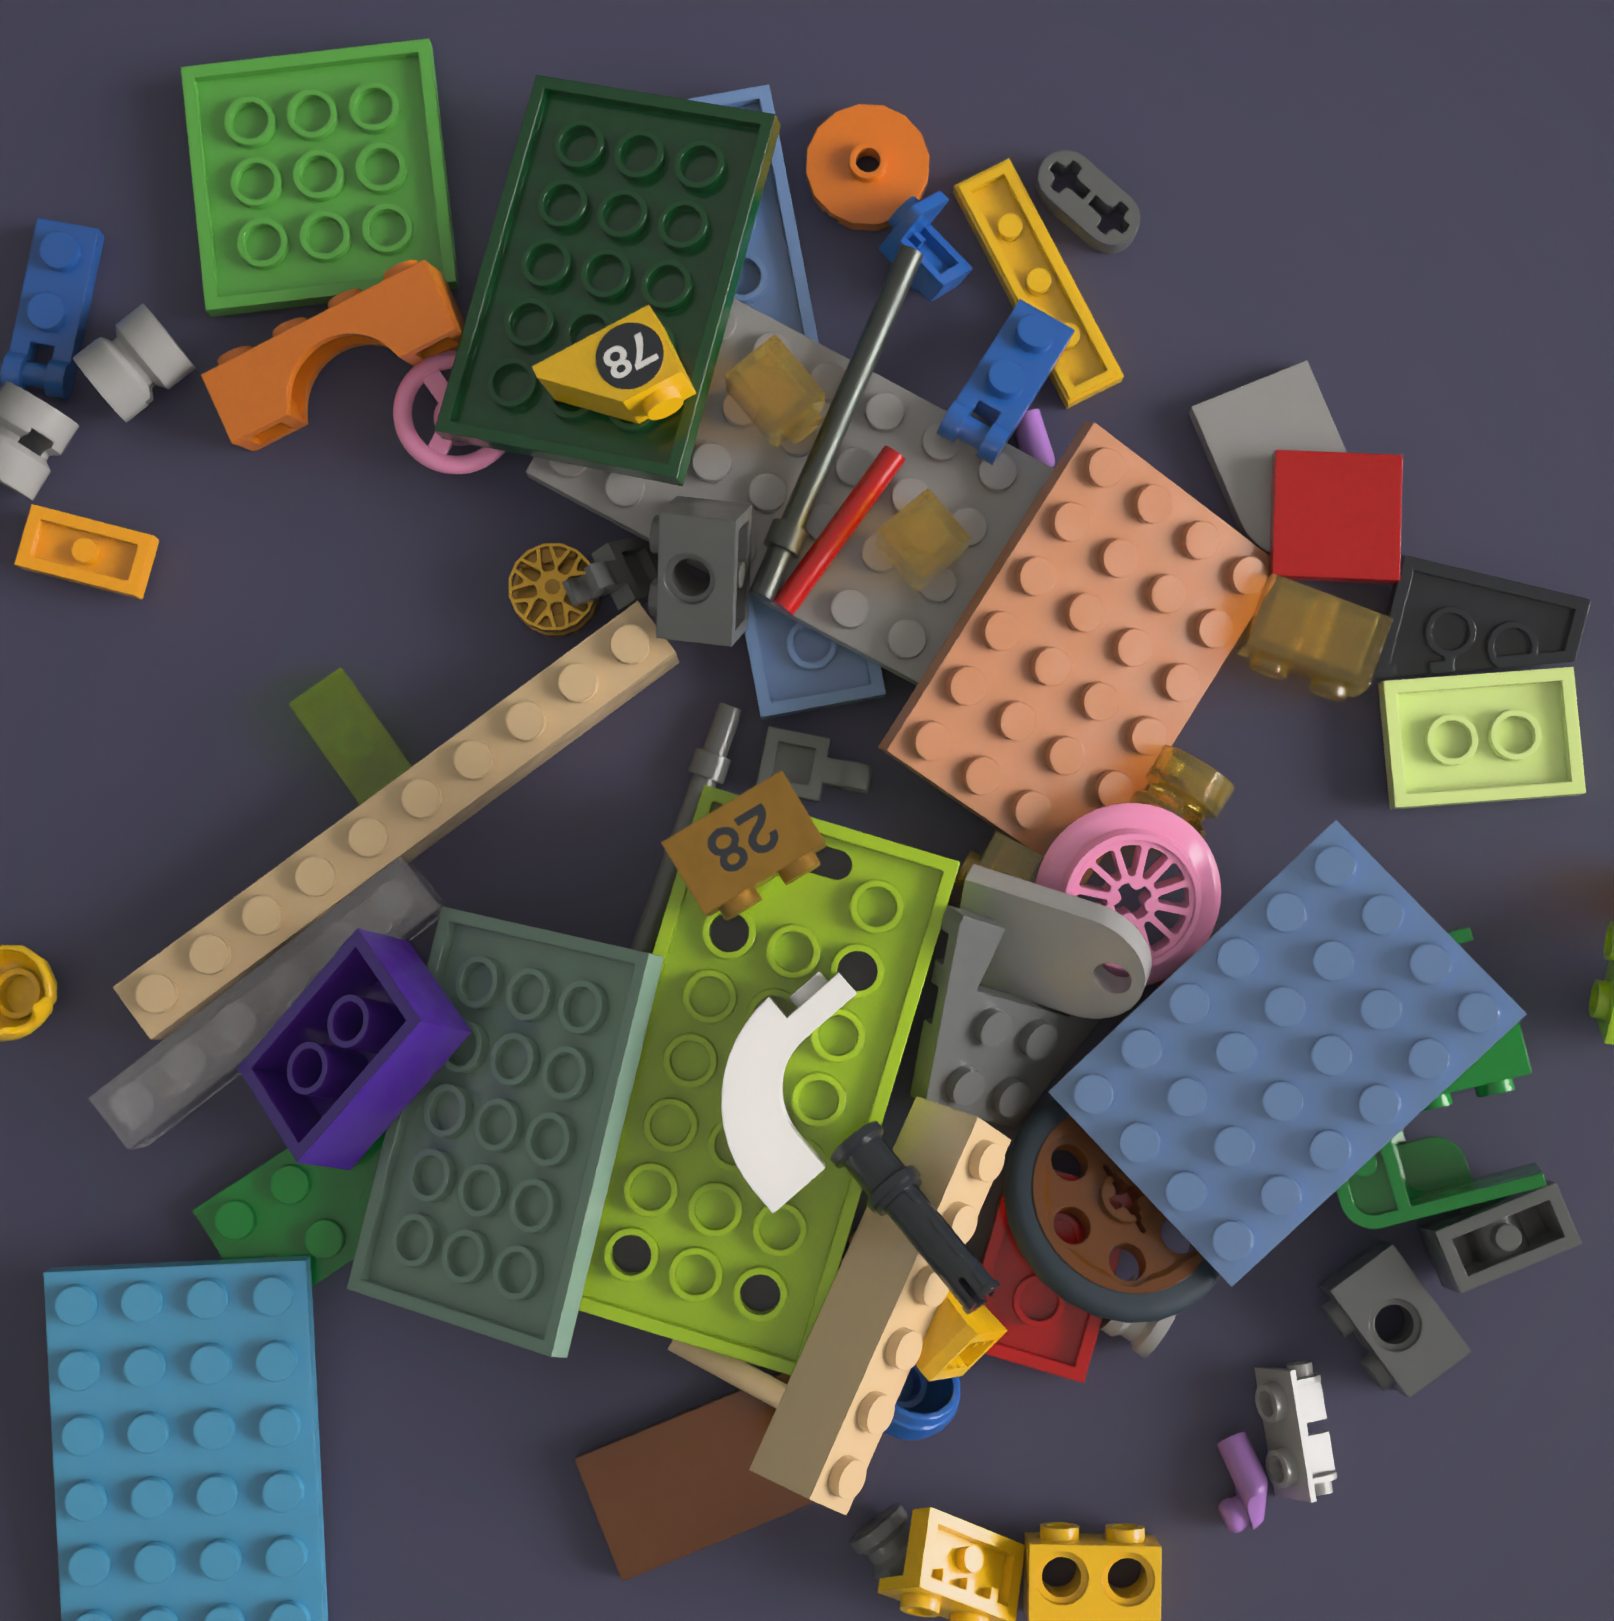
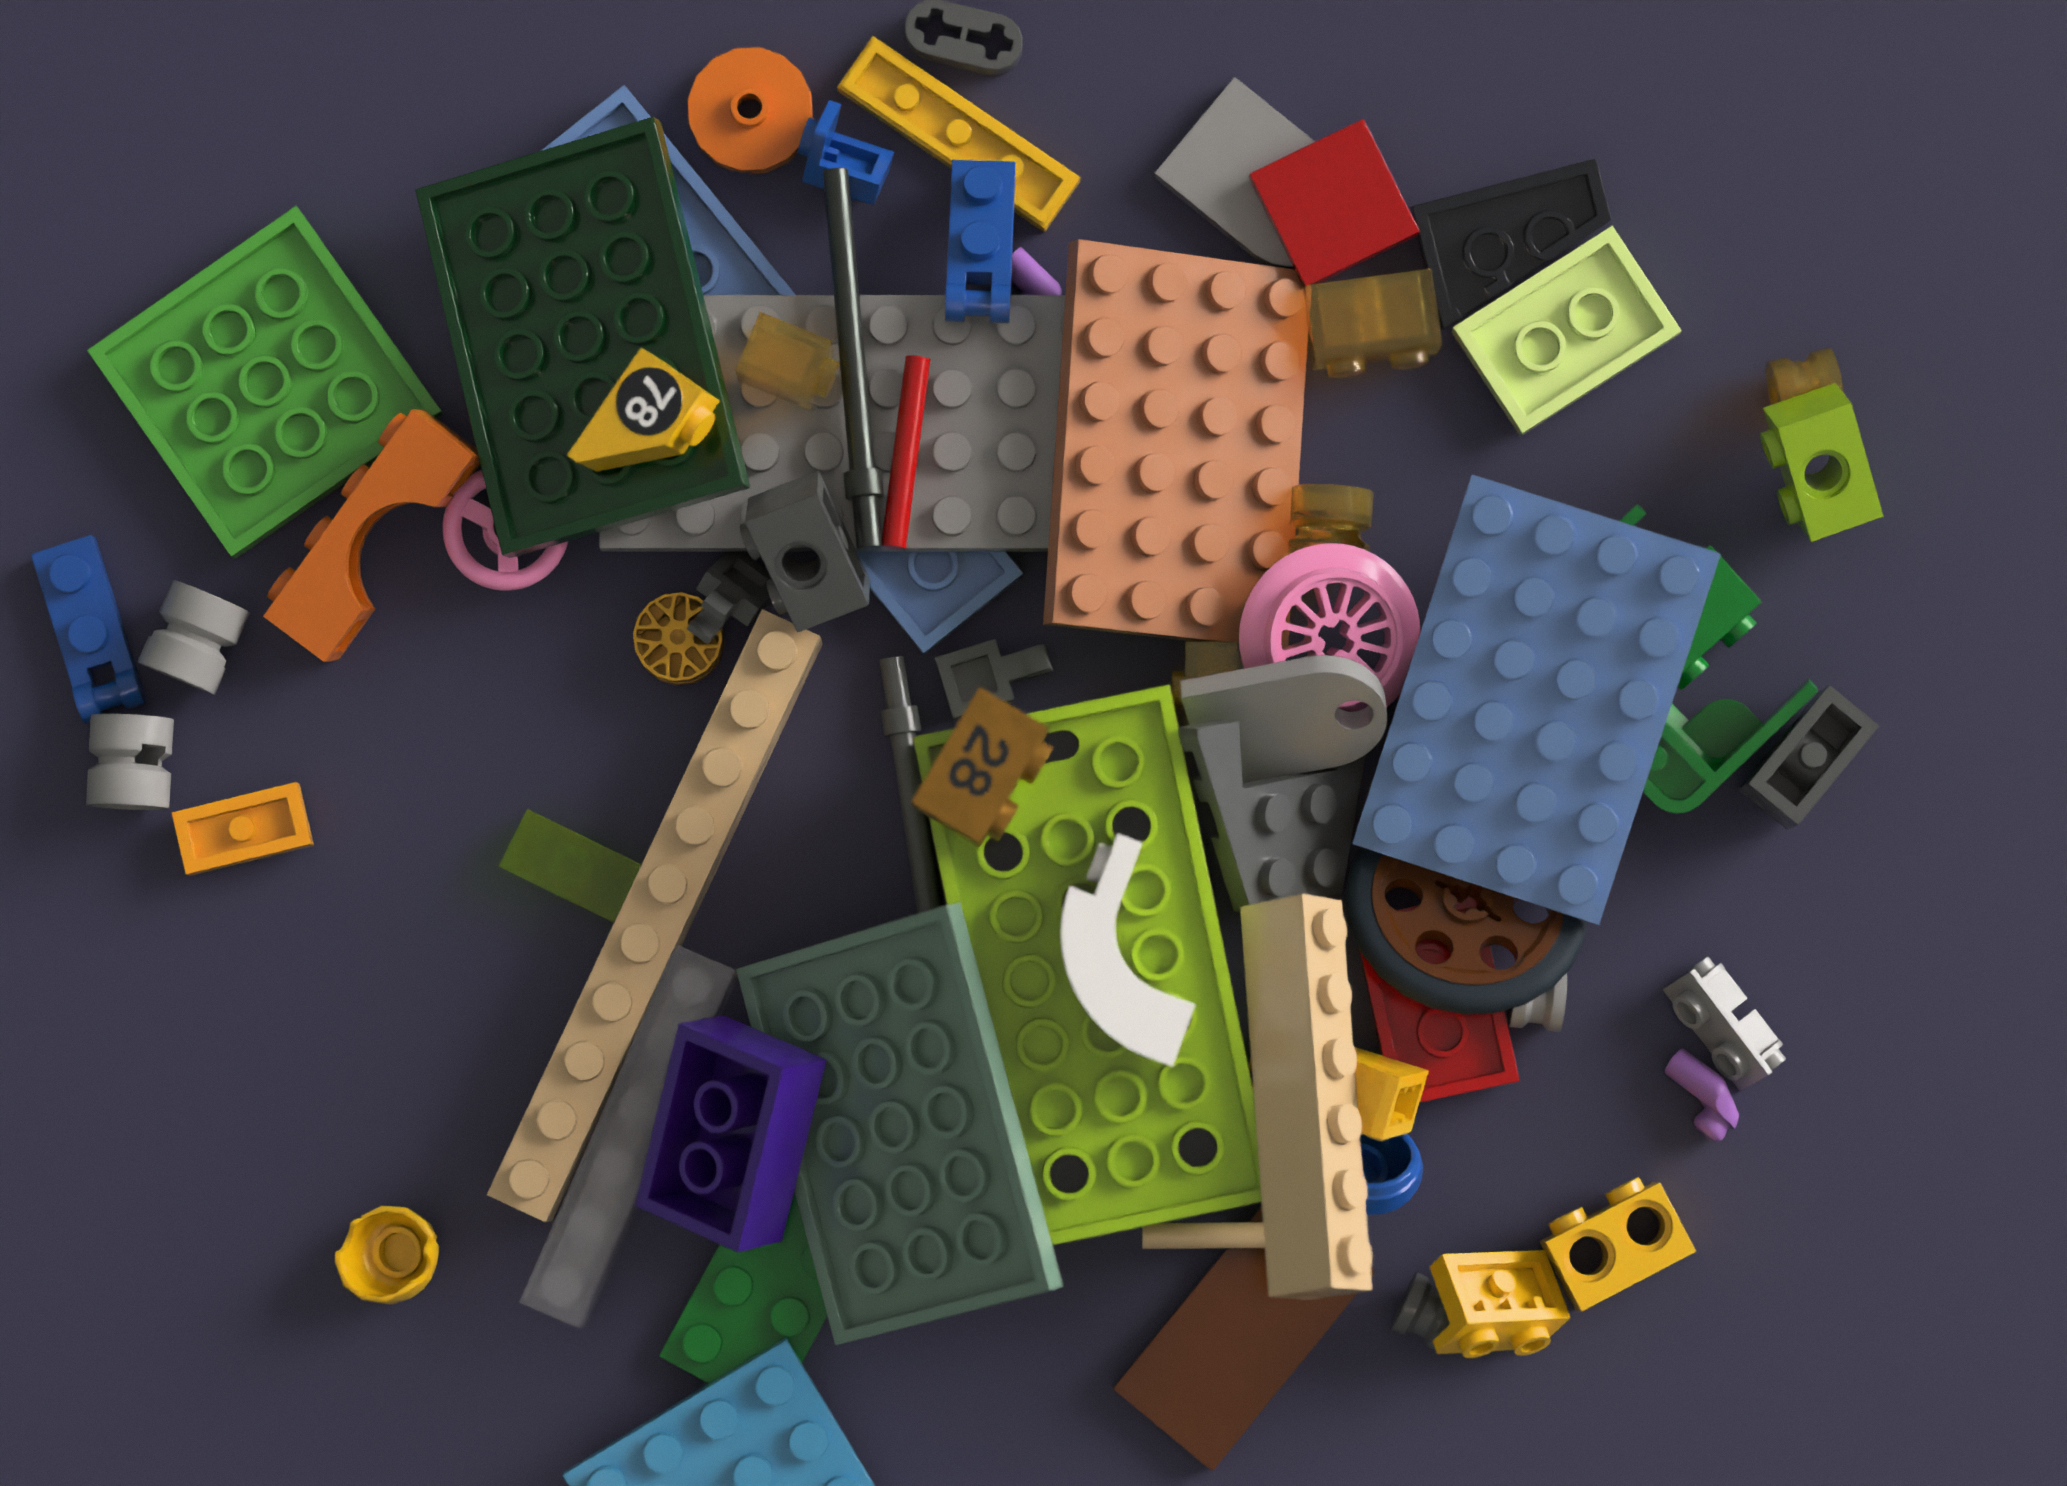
camera: 30 degrees left, 0 degrees up
(896, 1192) = (1267, 994): black pin -> none
(922, 540) = (984, 423): clear yellow brick -> none
(1426, 1340) = (1795, 881): dark grey brick -> none

